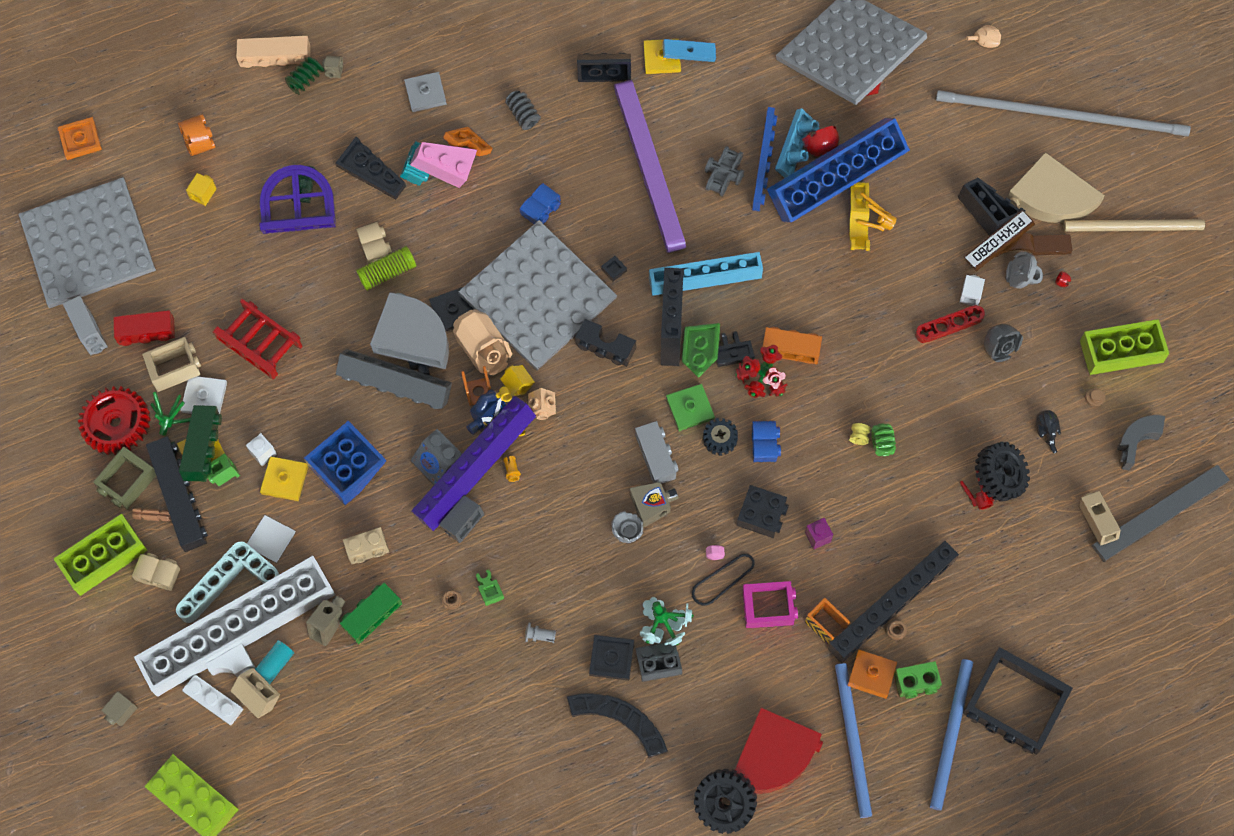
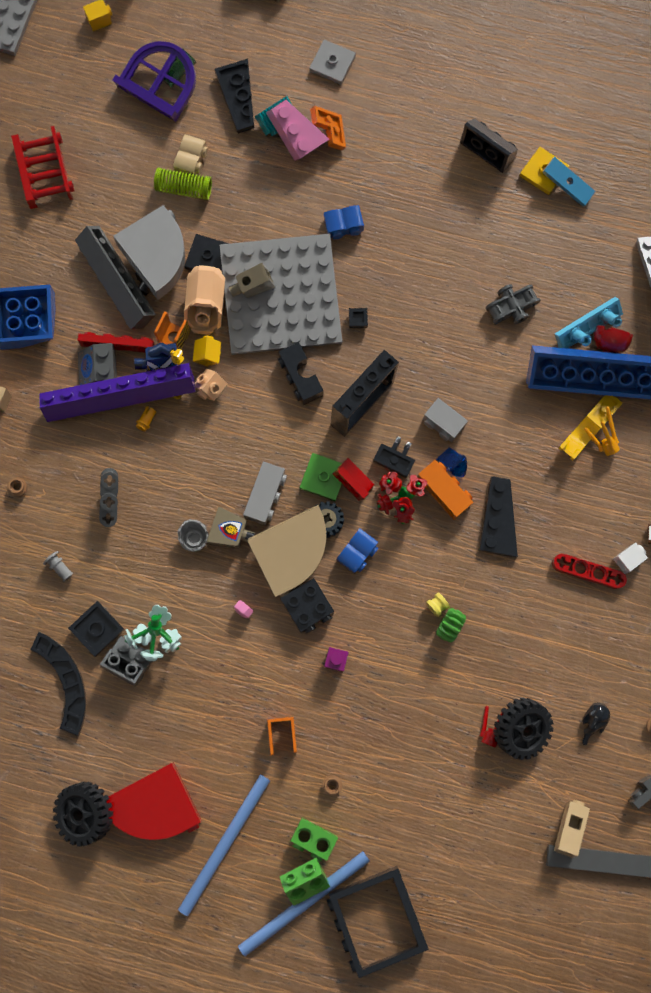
camera: 30 degrees right, 10 degrees up
(443, 424) = (123, 343): none -> red plate
(462, 519) = (75, 429): dark grey hinge -> none
(489, 589) = (50, 503): bright green plate -> none
(515, 291) = (259, 281): none -> dark tan torso
(522, 109) = (394, 132): dark grey piece -> none
(534, 542) = (108, 505): none -> dark grey axle
(649, 166) = (456, 255): medium lavender beam -> none
(700, 347) = (371, 435): bright green tile -> none
(711, 272) = (430, 380): medium azure brick -> none
(715, 391) = (353, 479): none -> red panel
(715, 476) = (290, 550): none -> tan brick
(727, 588) = (234, 644): black piece -> none
(747, 294) = (444, 420): none -> light grey brick
(752, 622) = (234, 671): dark pink window -> none
(764, 166) = (549, 323): blue plate -> none
(781, 318) = (454, 462): none -> clear blue tile
(851, 338) = (499, 525): none -> black wing
(872, 674) = (282, 805): orange plate -> none
(892, 602) = (348, 761): black brick -> none
(938, 714) = (304, 881): none -> bright green brick
(1002, 341) = (617, 619): dark grey cylinder -> none

